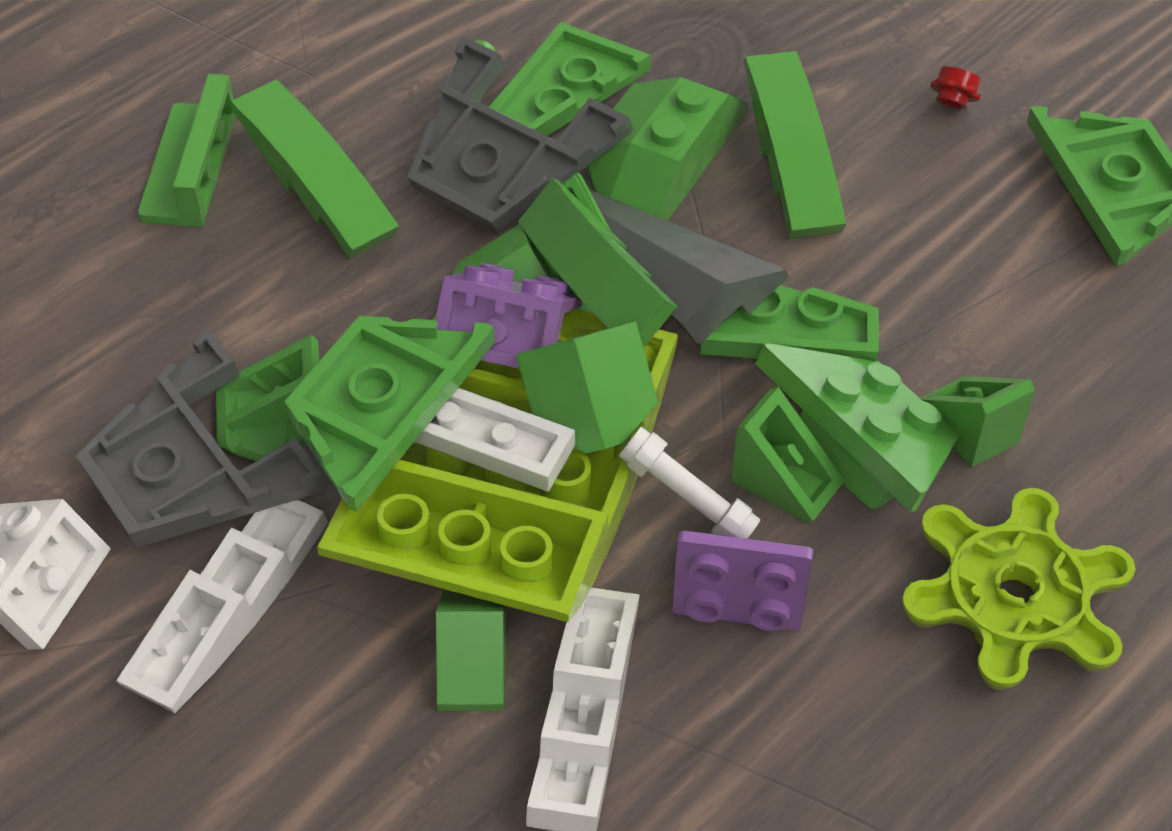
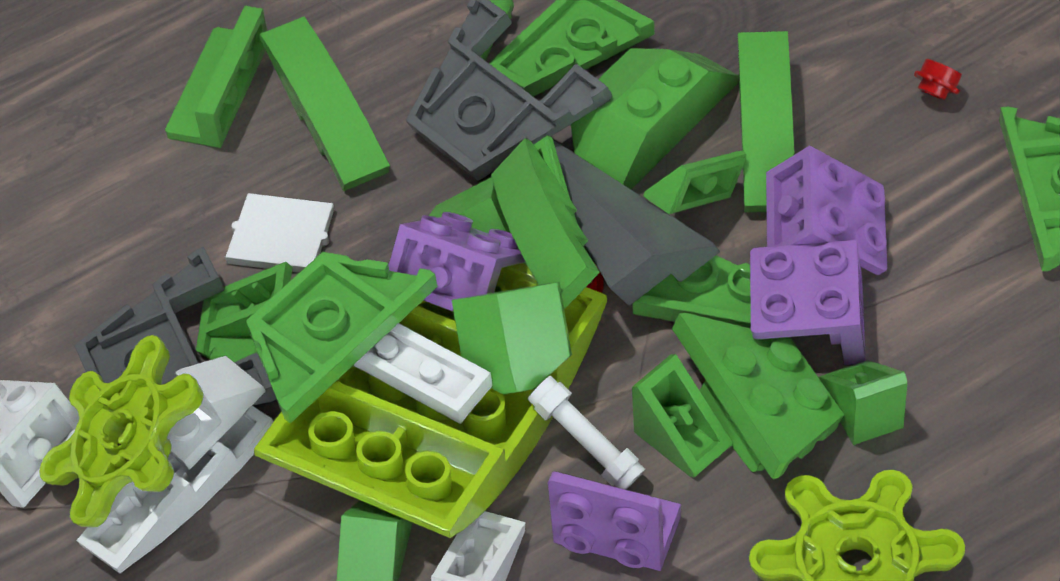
camera: 15 degrees right, 0 degrees up
(129, 535) = (107, 420): none -> lime plate
(253, 503) = (226, 398): none -> white slope
(287, 307) = (279, 231): none -> white piece
(742, 209) = (697, 183): none -> bright green slope
(878, 218) = (823, 202): none -> medium lavender bracket
(895, 310) = (809, 293): none -> medium lavender bracket

